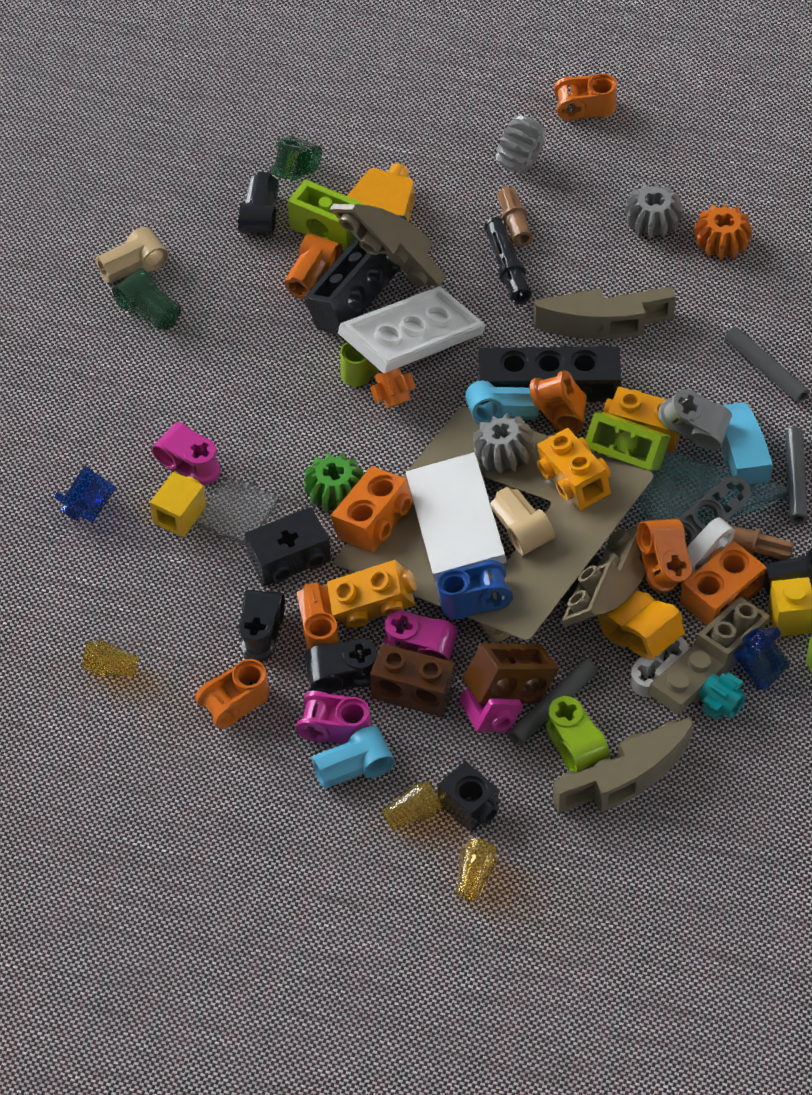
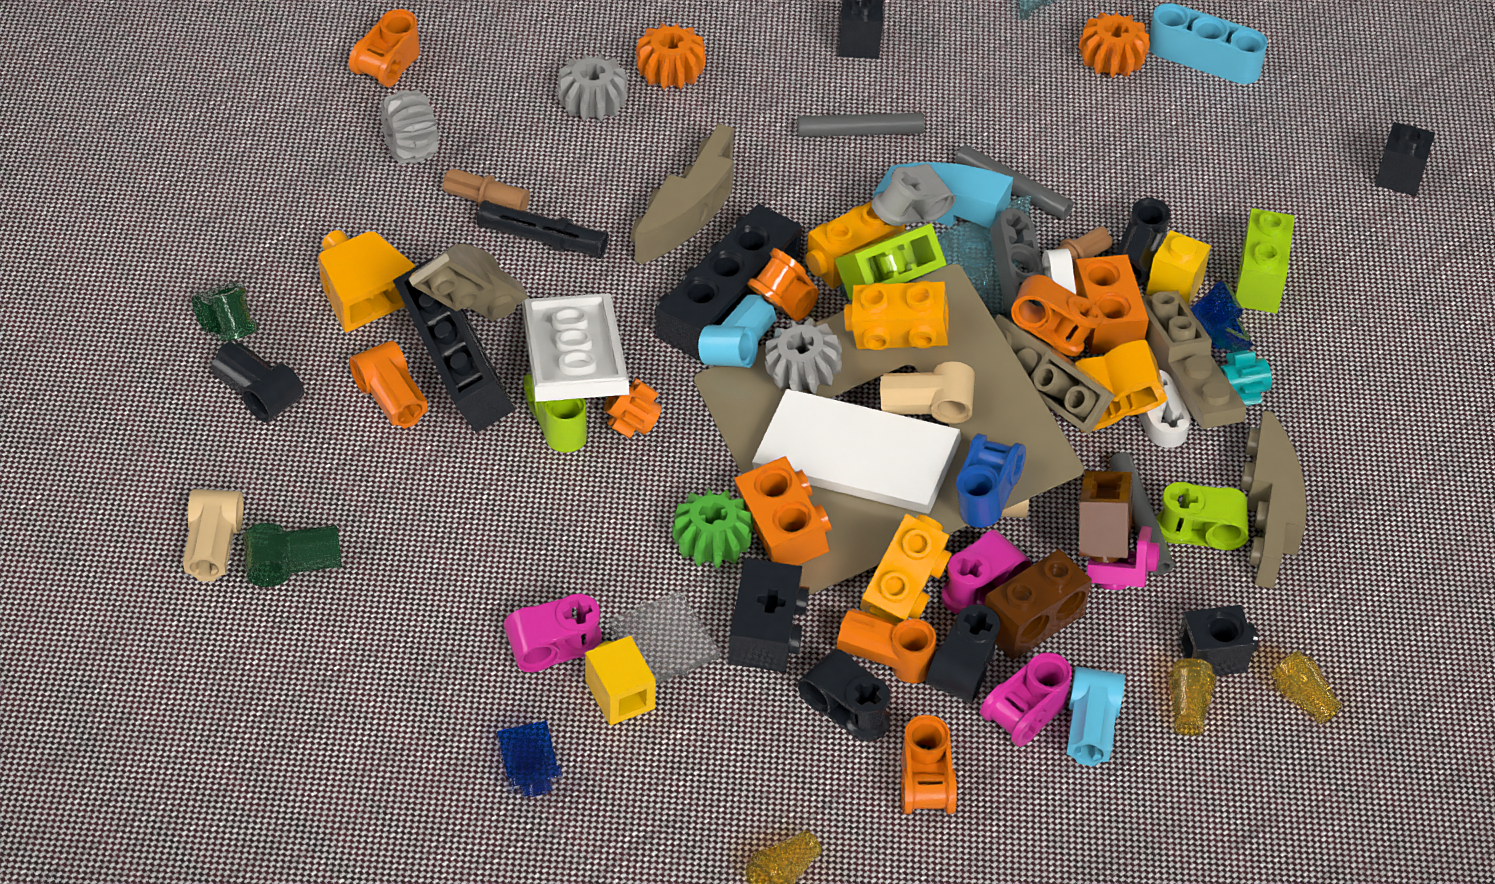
camera: 60 degrees left, 5 degrees down
(311, 213) = (340, 327): lime brick -> none

